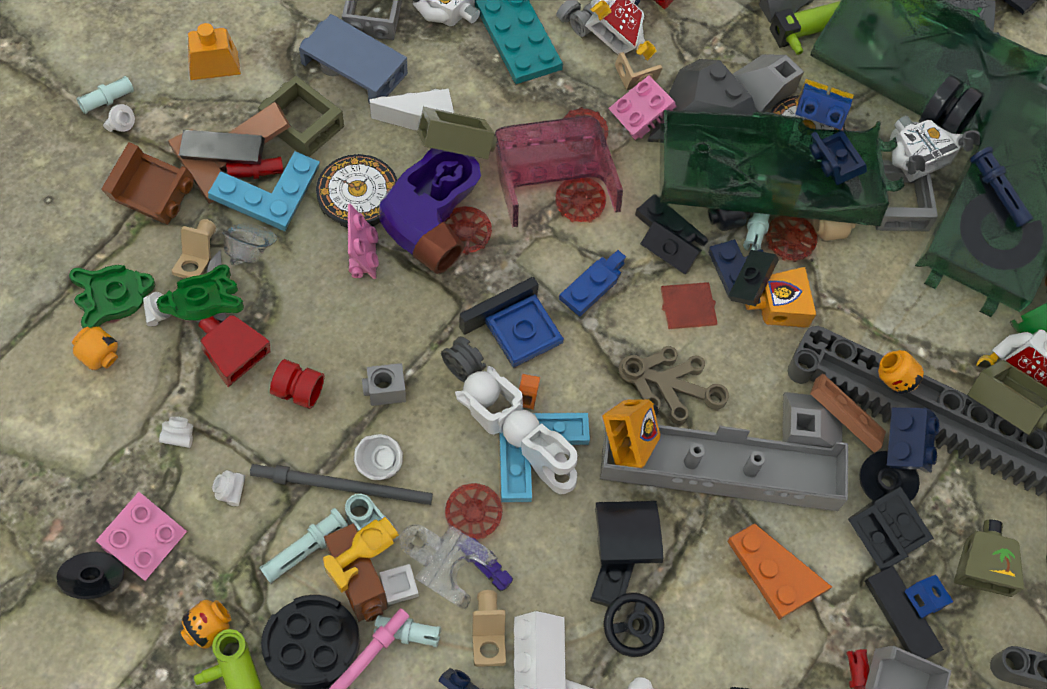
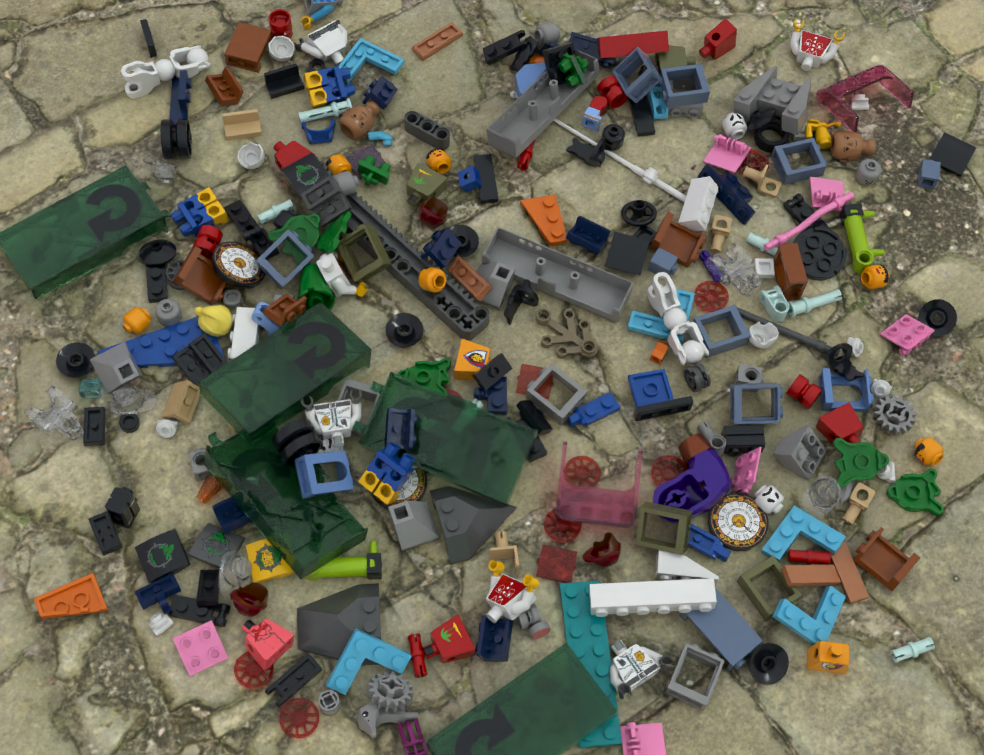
camera: 160 degrees left, 0 degrees up
(120, 118) = (902, 627): white plate -> none
(147, 403) = (894, 414): none -> light grey gear
(204, 400) = (826, 381): none -> medium blue panel
(222, 147) = (832, 569): tile -> none
(239, 82) = (812, 628): none -> medium azure plate
(245, 445) = (842, 364): none -> black hair
(287, 36) = (774, 669): none -> black dish
(288, 291) = (800, 452): none -> light grey slope
(321, 223) = (769, 499): none -> white head
(366, 544) = (785, 268): yellow piece -> none
(367, 338) = (736, 403): none -> sand blue window
(374, 292) = (743, 439): none -> black brick
(394, 149) = (707, 544): none -> blue hinge
(419, 281) = (717, 441): none -> light grey pin
(421, 465) = (736, 323): none -> sand blue window
(447, 53) = (652, 597): none -> white brick
(523, 101) = (605, 552): none -> dark red piece
(554, 586) = (678, 241): none -> dark orange panel
(565, 537) = (663, 262): none -> sand blue brick
(574, 90) = (556, 564): none -> clear red piece
(632, 431) = (609, 295): light orange torso -> none
(642, 107) = (515, 523): bright pink hinge -> none
(645, 300) = (562, 415): none -> light grey window
(700, 549) = (588, 235): none -> dark blue bracket
(765, 406) = (517, 297): none -> black hair
(834, 262) = (429, 374): none -> green tile
(890, 528) = (473, 217): black slope -> none
(904, 309) = (404, 322): none -> black dish
(924, 82) = (307, 475): none -> medium blue panel
(954, 508) = (433, 212): none -> piece
(992, 614) = (438, 160): none -> light orange head
(994, 175) = (306, 370): dark blue pin -> none

